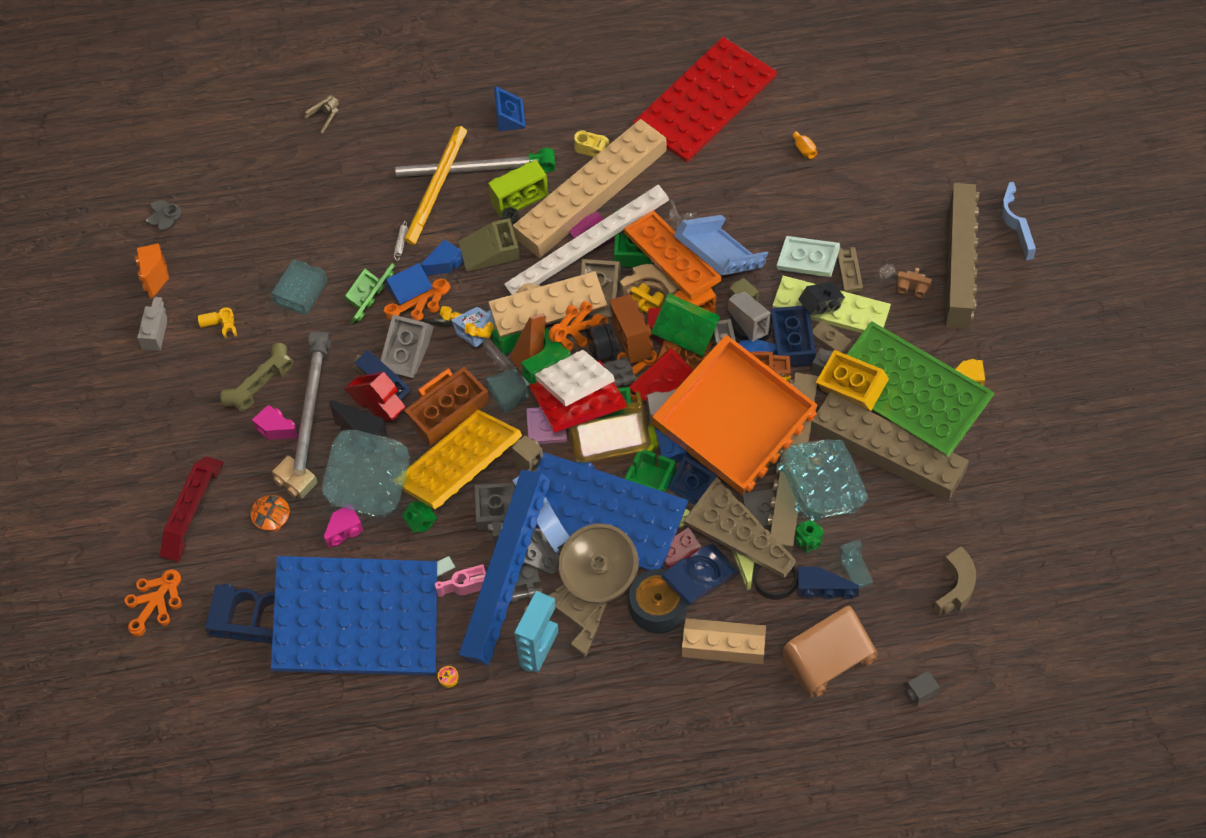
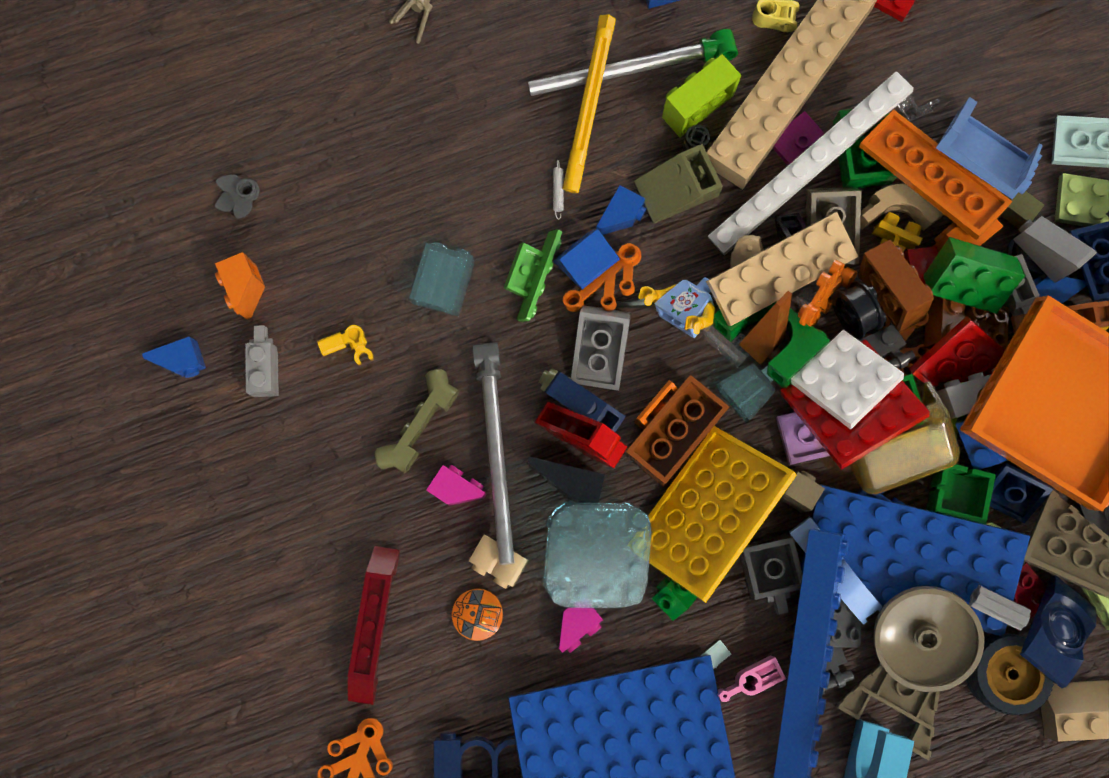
camera: 10 degrees left, 20 degrees up
(92, 313) = (178, 357): none -> blue slope
(653, 544) = (999, 607): none -> light grey axle

